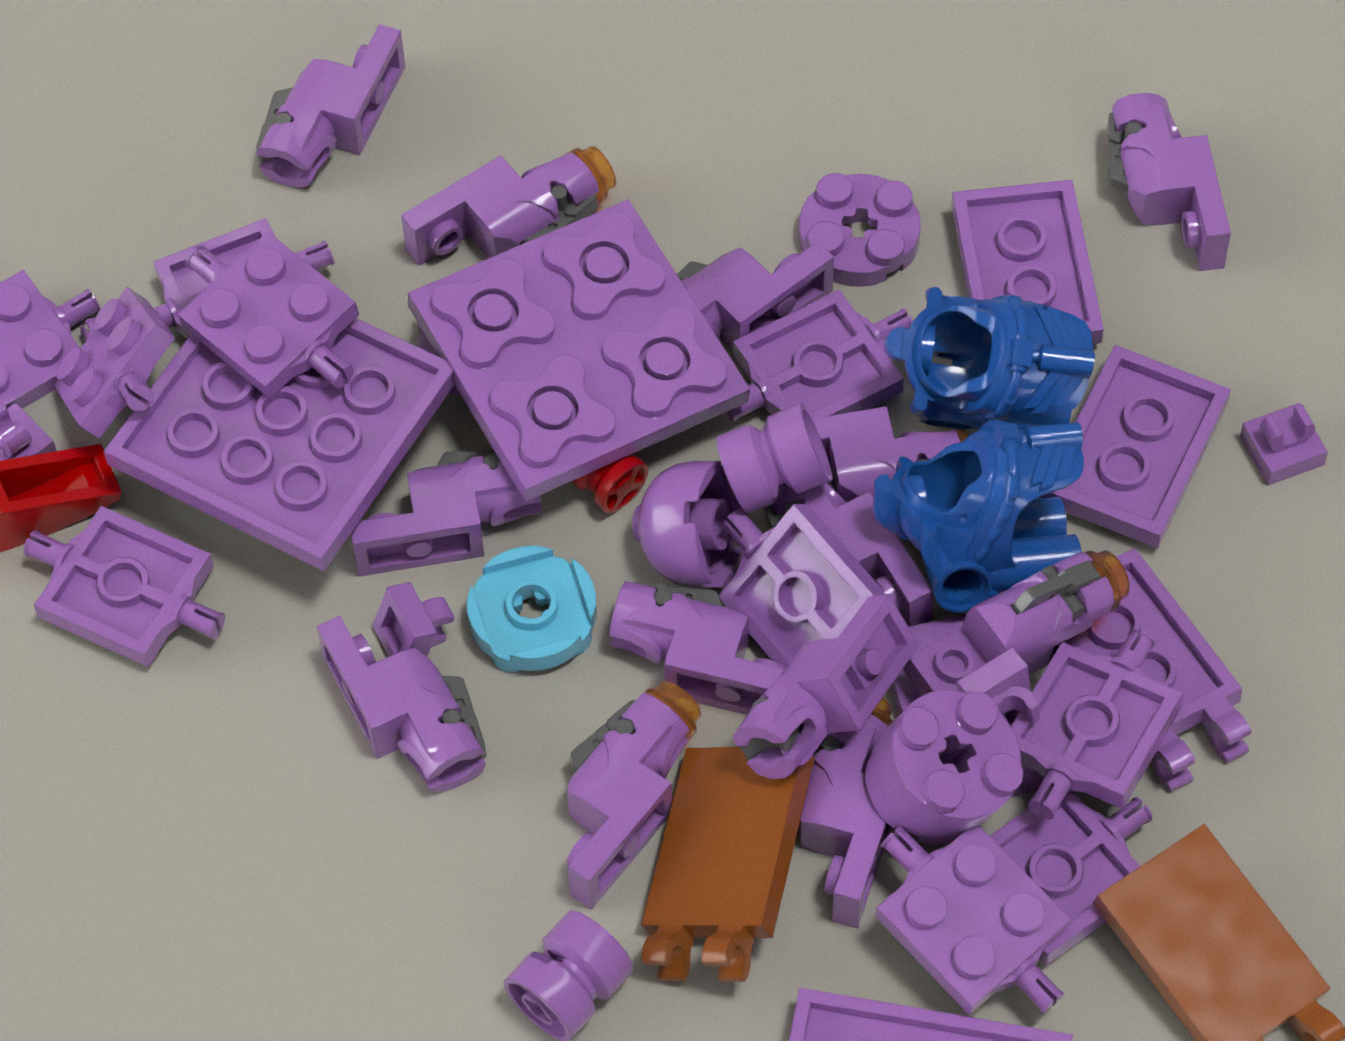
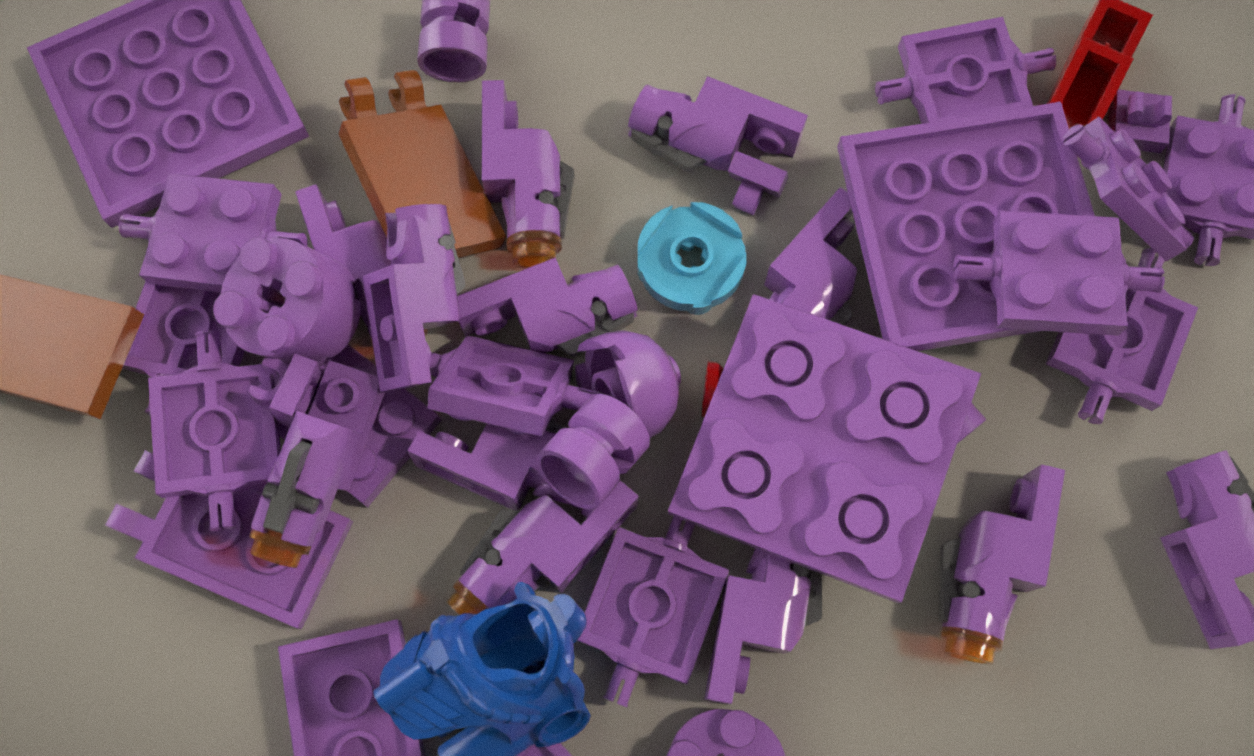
camera: 140 degrees right, 15 degrees up
(979, 508) = (393, 547): blue helmet -> none

